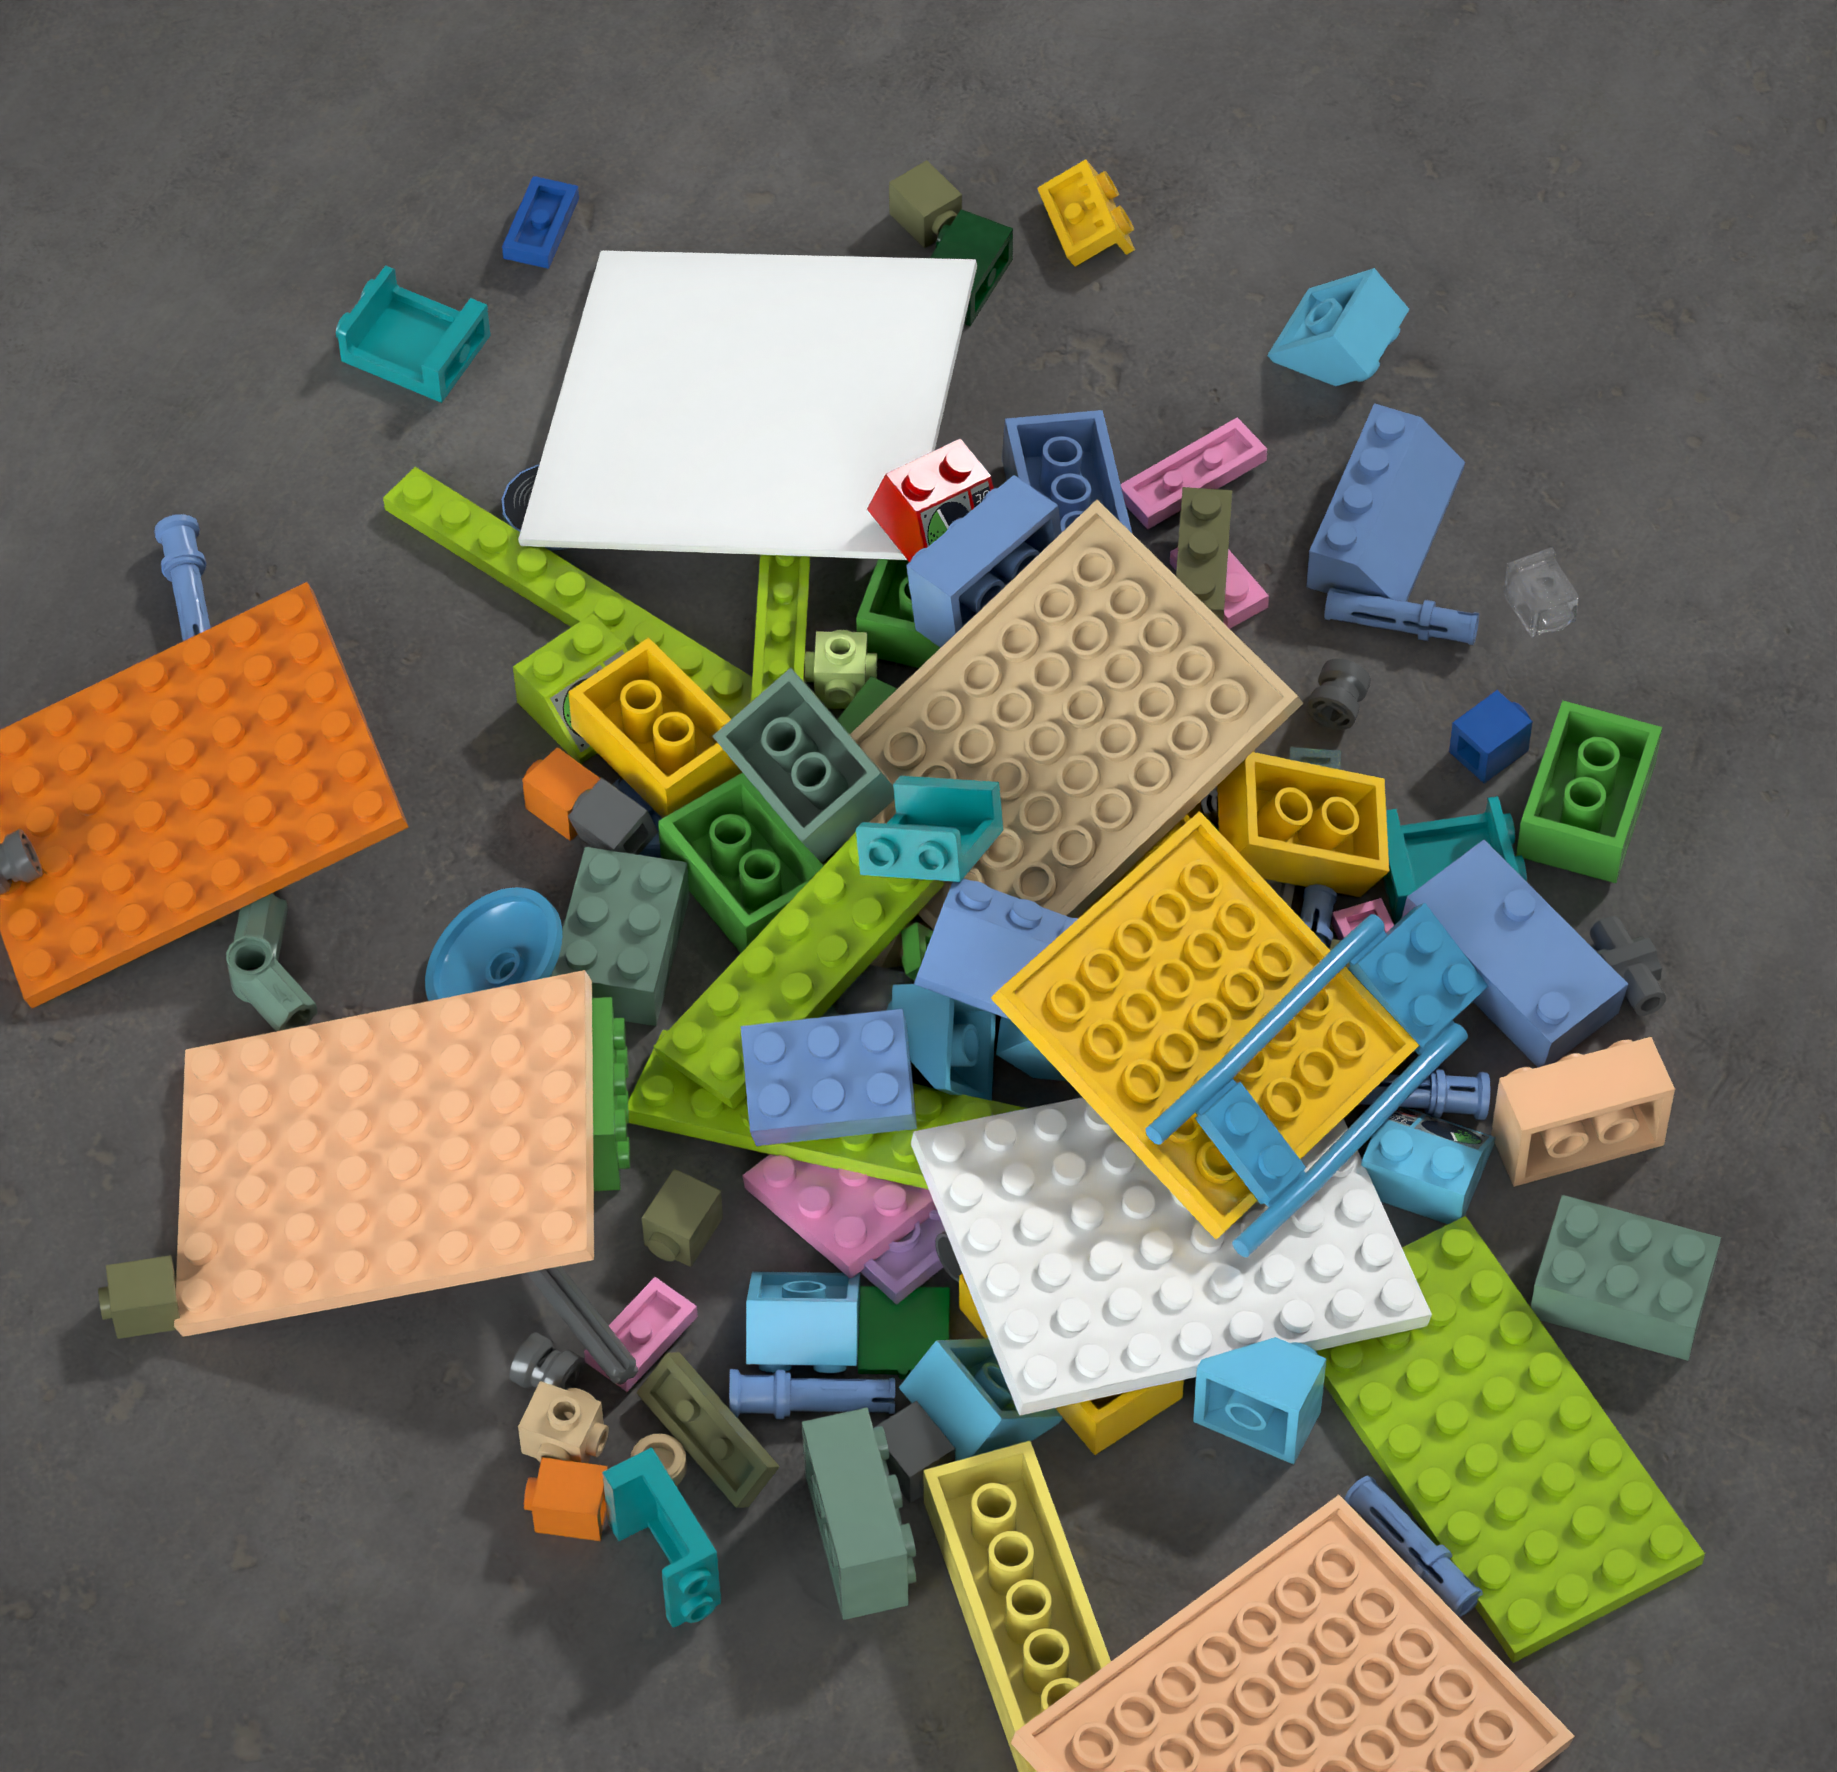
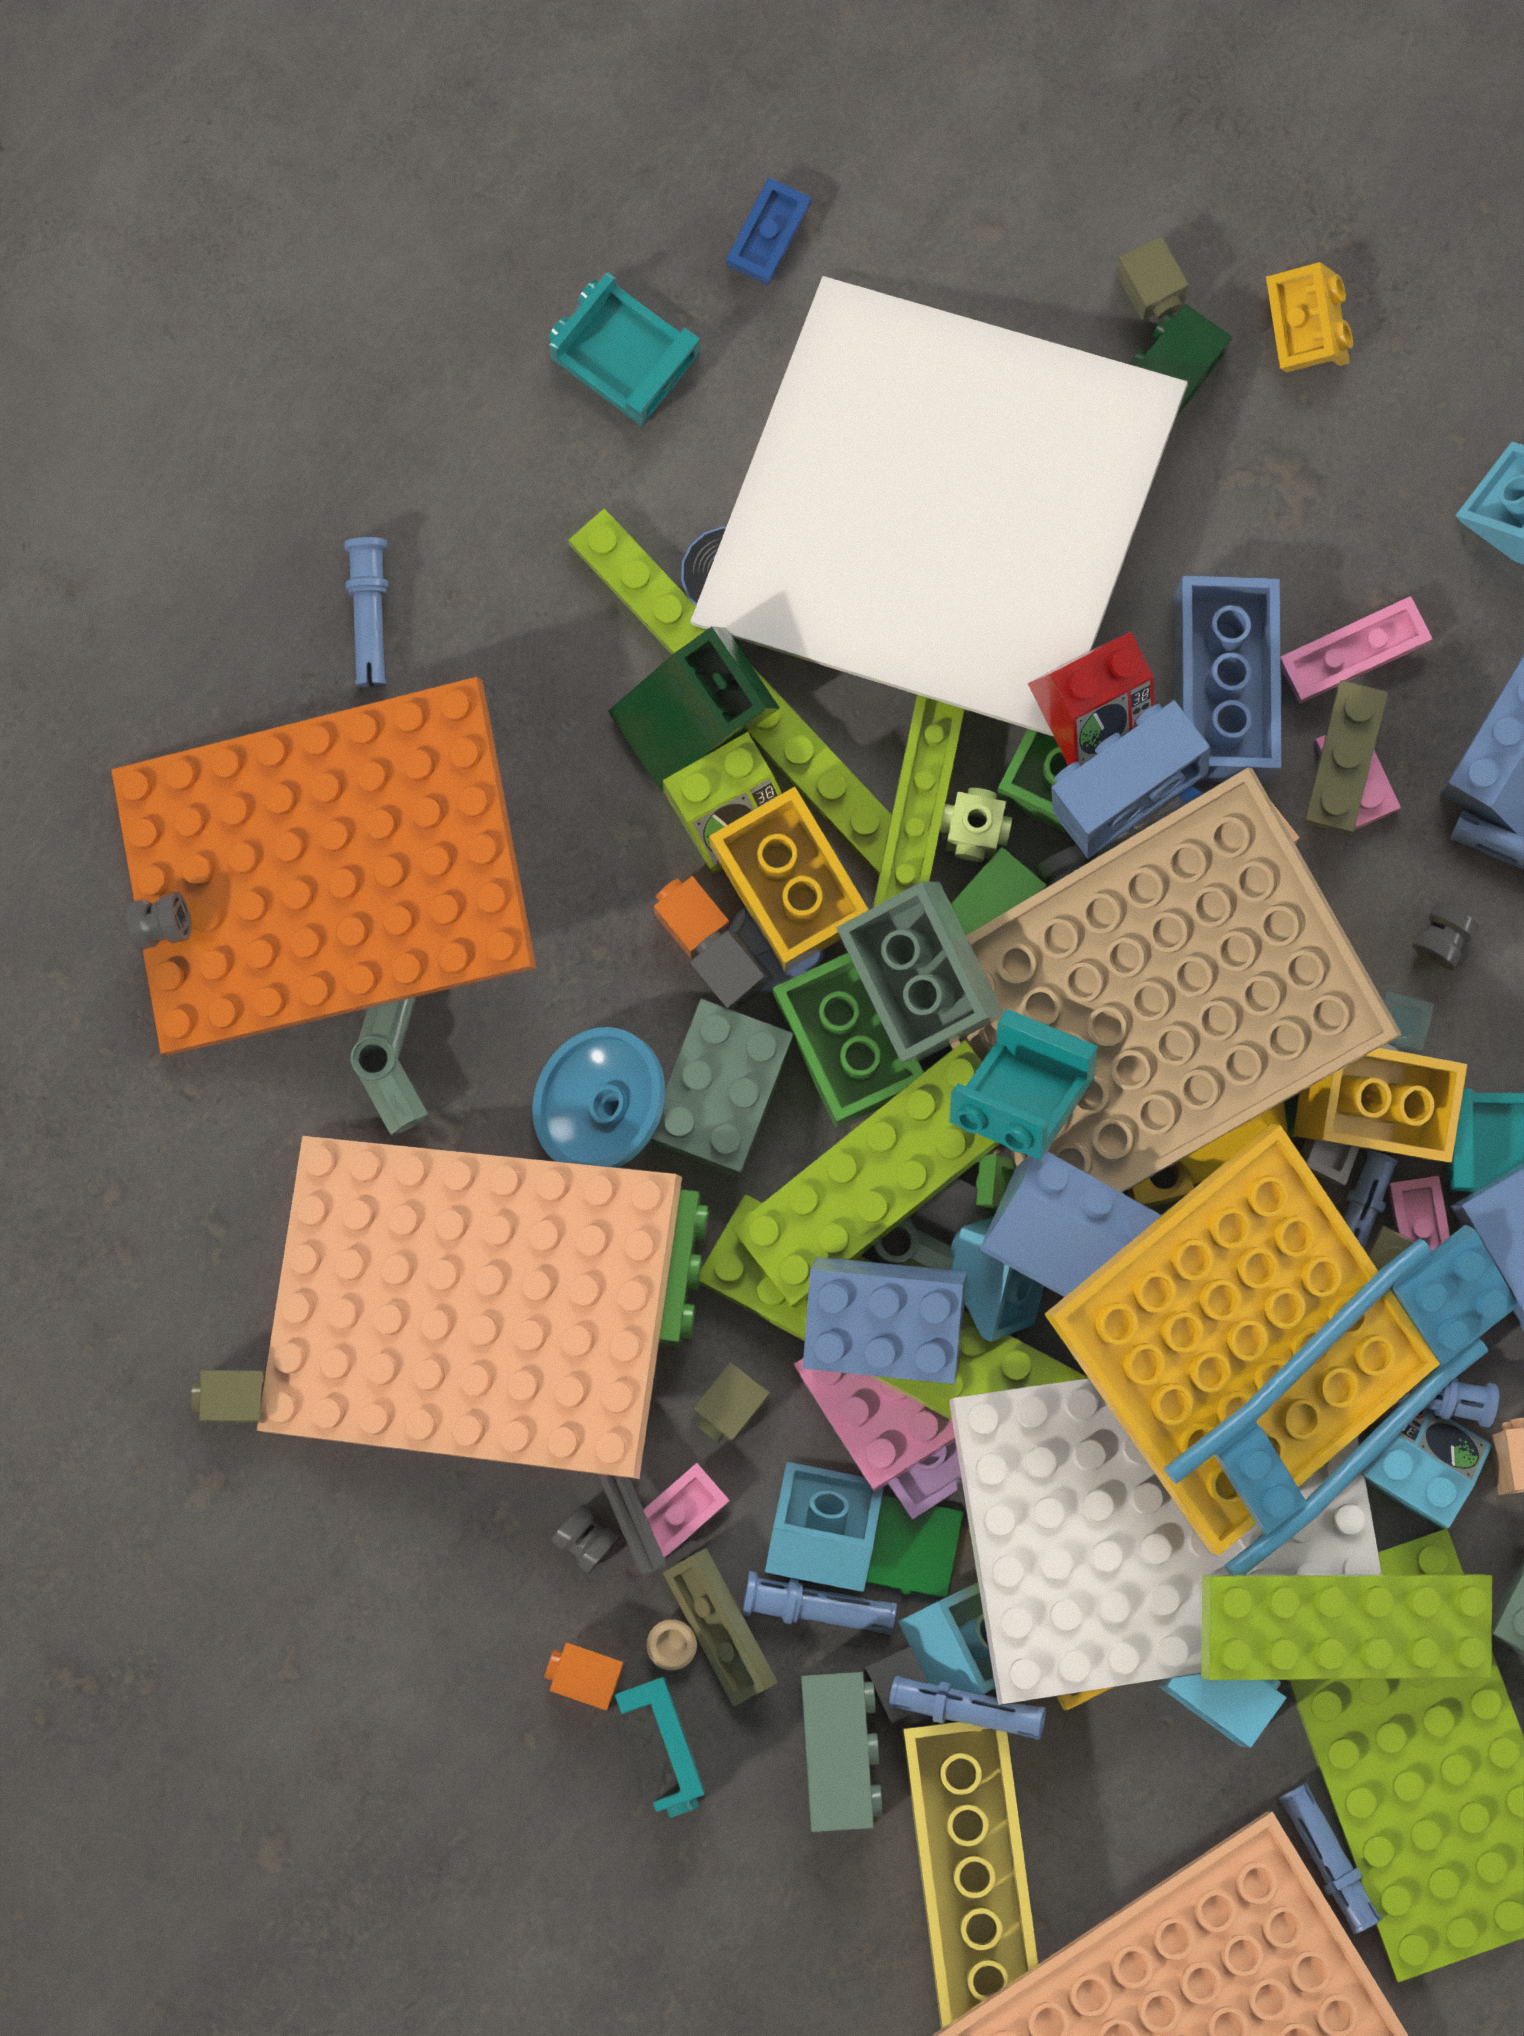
camera: 10 degrees right, 25 degrees up
(530, 597) = (692, 704): none -> dark green slope
(562, 1425) = (572, 1602): tan brick -> none
(987, 1433) = (966, 1707): none -> medium blue pin
(1375, 1288) = (1346, 1626): none -> lime plate

